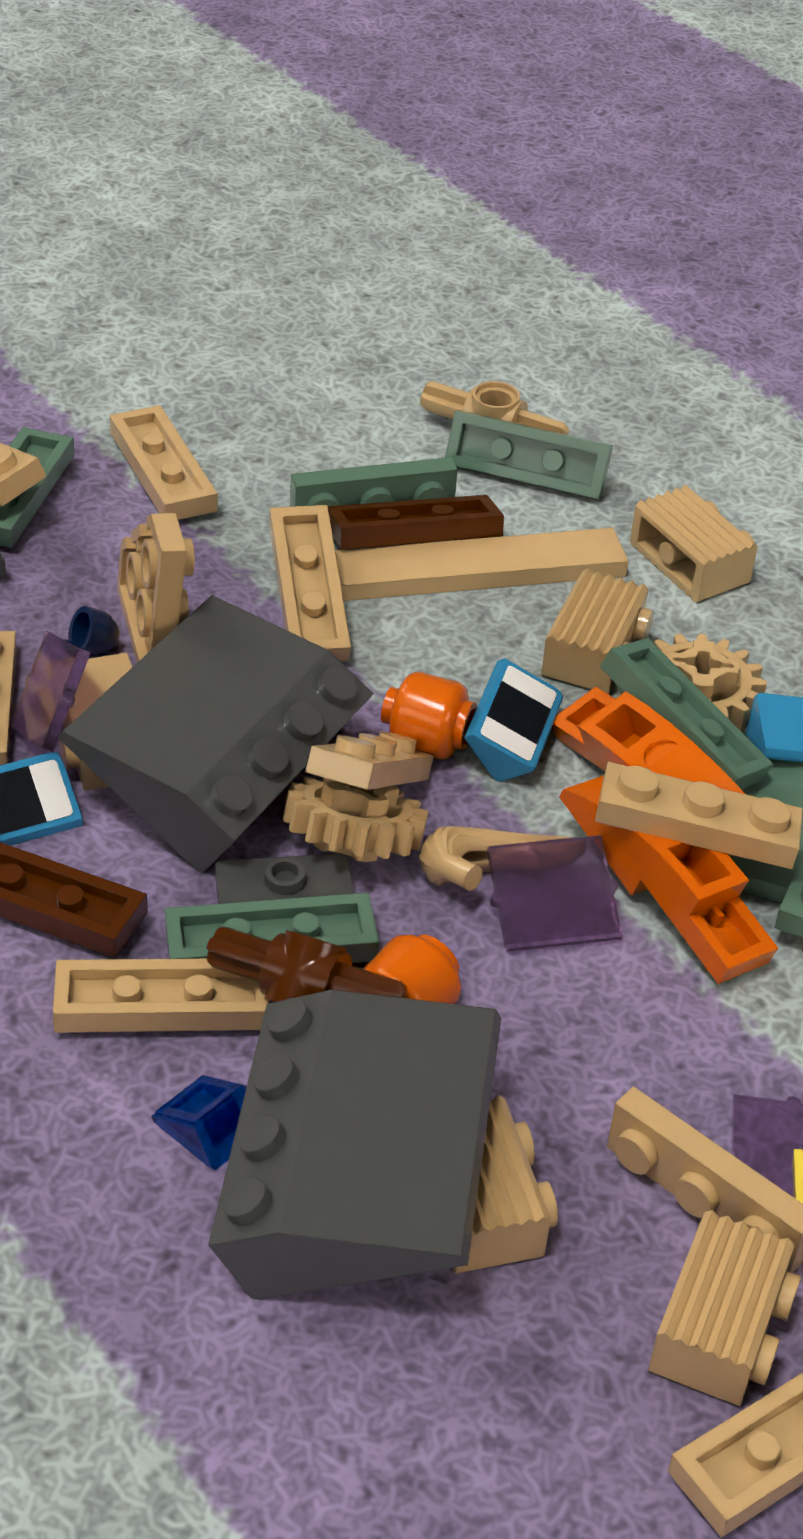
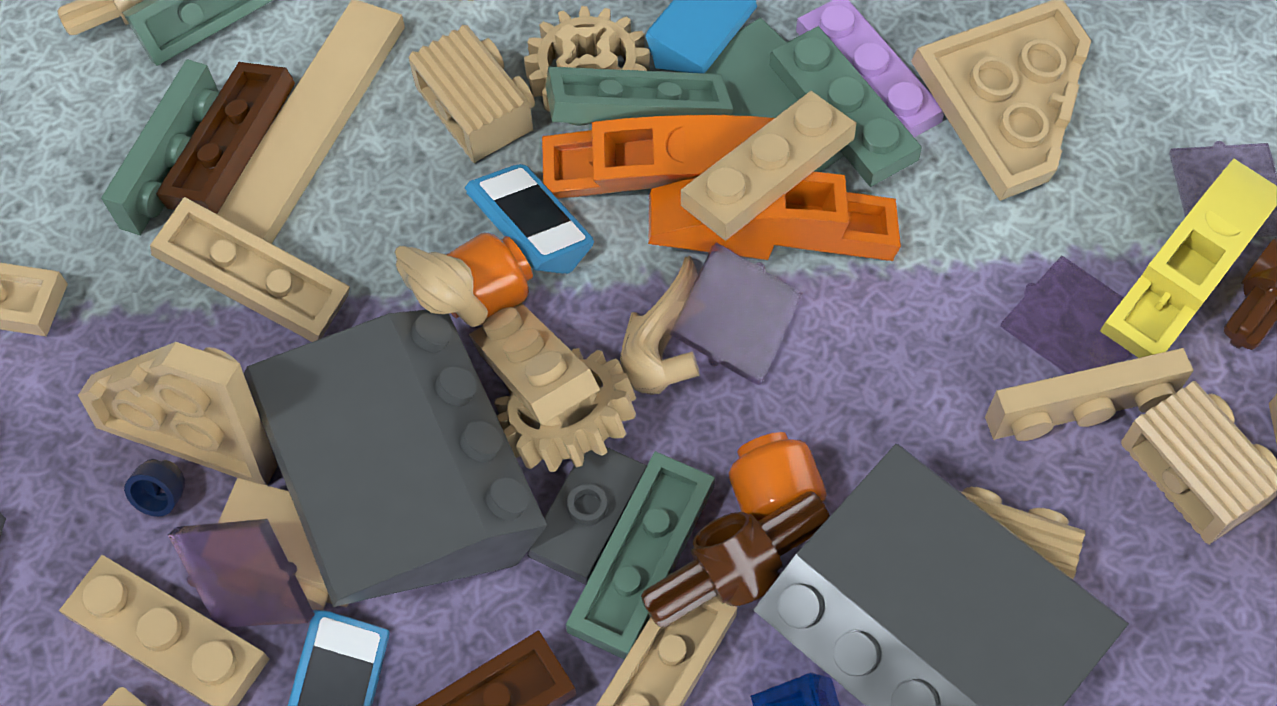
camera: 50 degrees left, 20 degrees up
(380, 670) = (440, 284): none -> tan piece

